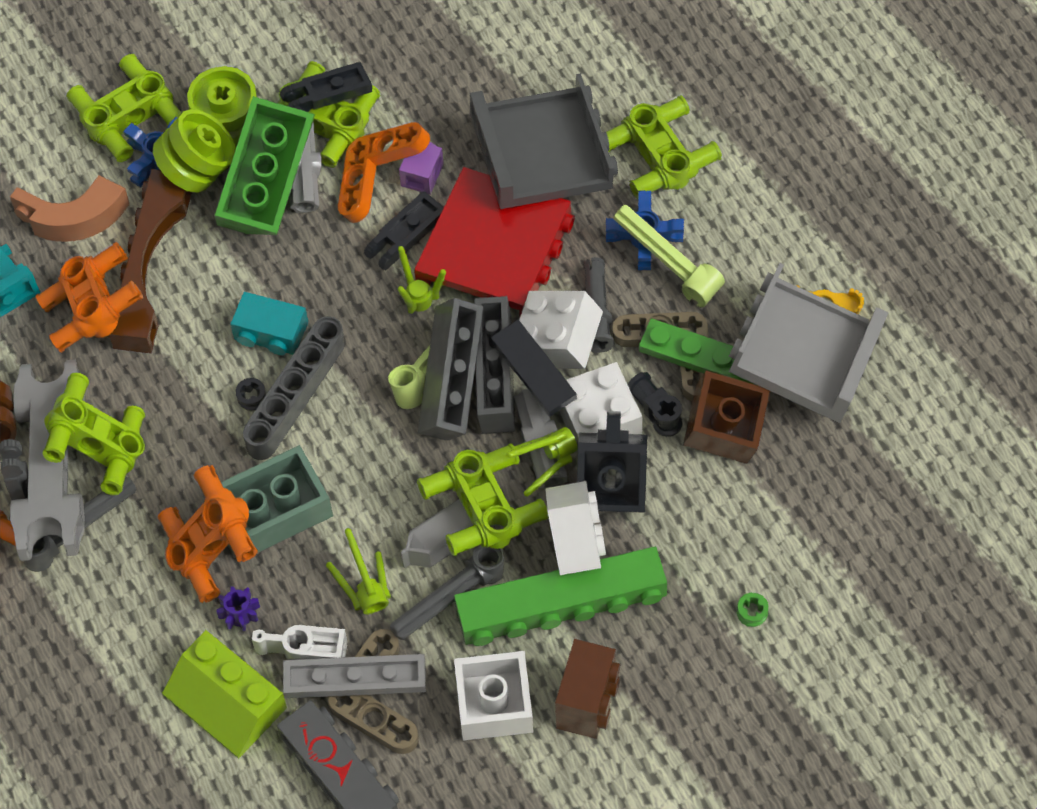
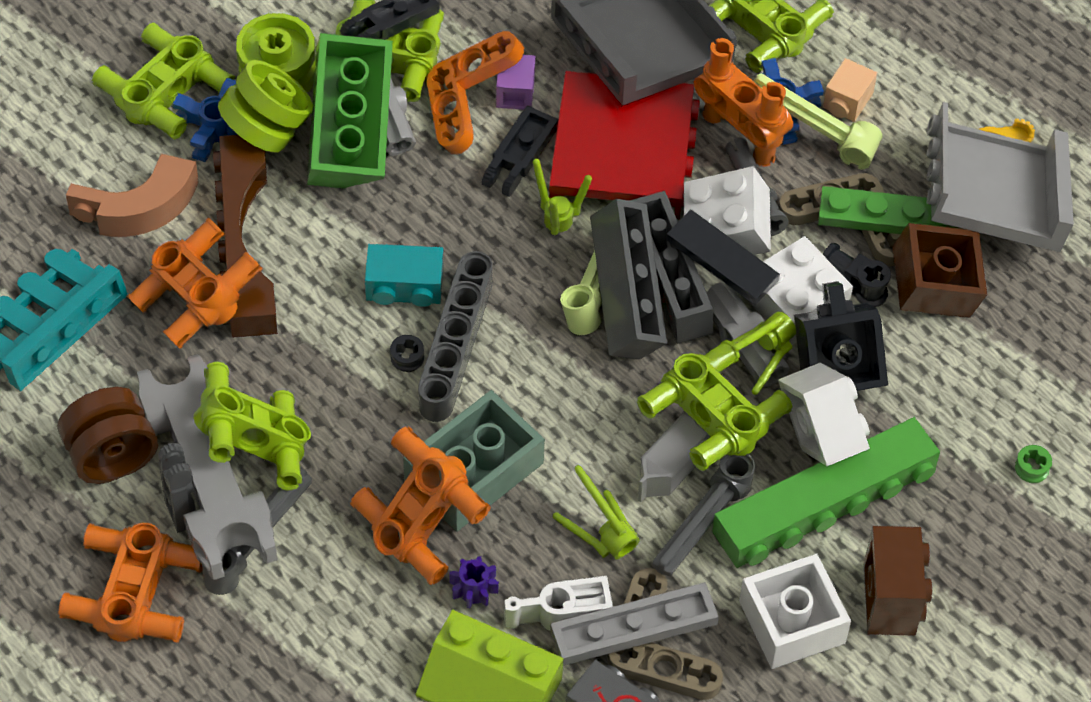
camera: 20 degrees left, 5 degrees down
(591, 212) = (744, 104): none -> orange piece
(710, 232) = (849, 90): none -> light nougat brick

